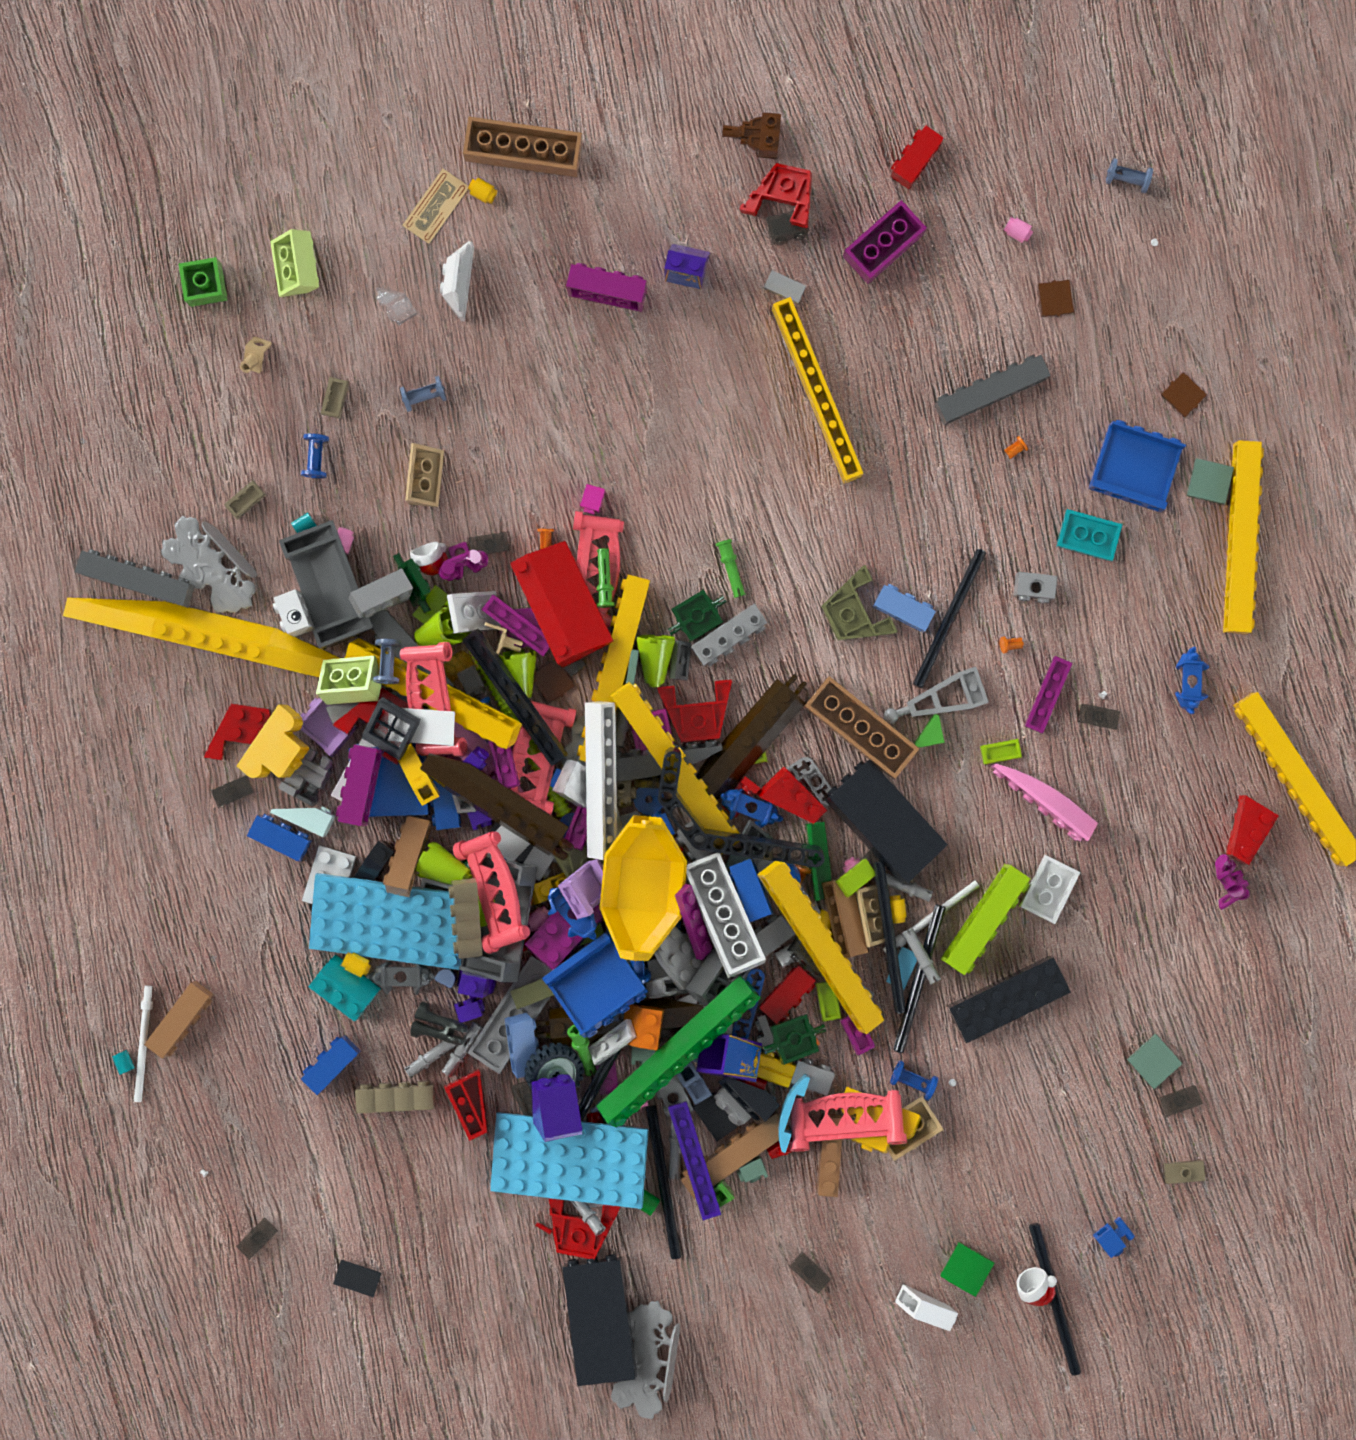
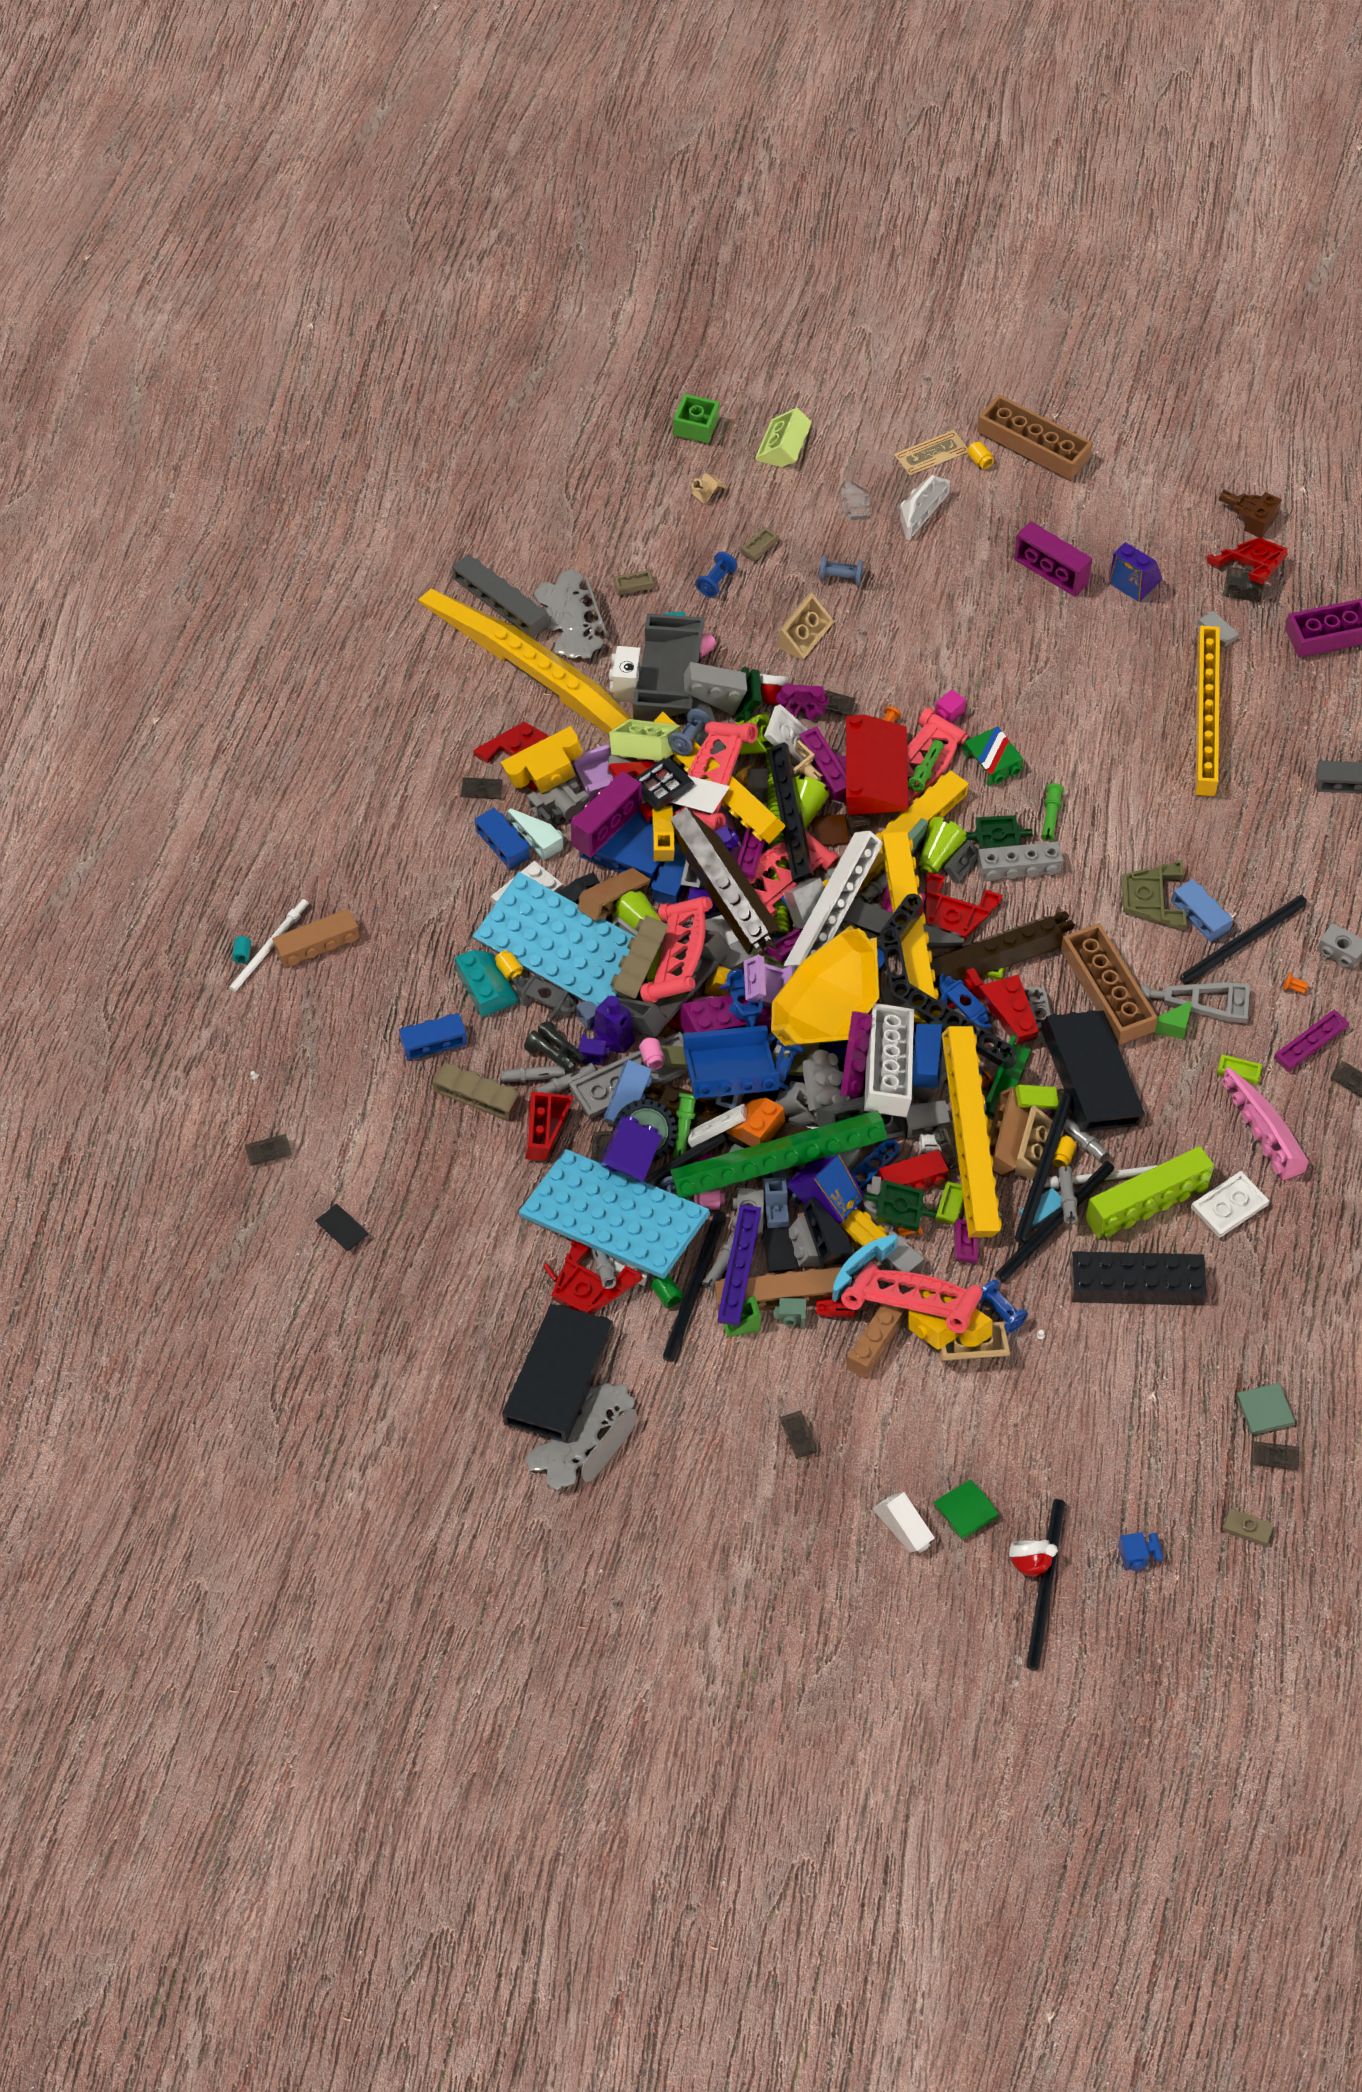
camera: 25 degrees right, 30 degrees down
(524, 1003) = (652, 1053): none -> bright pink brick
(655, 534) = (994, 754): none -> green panel

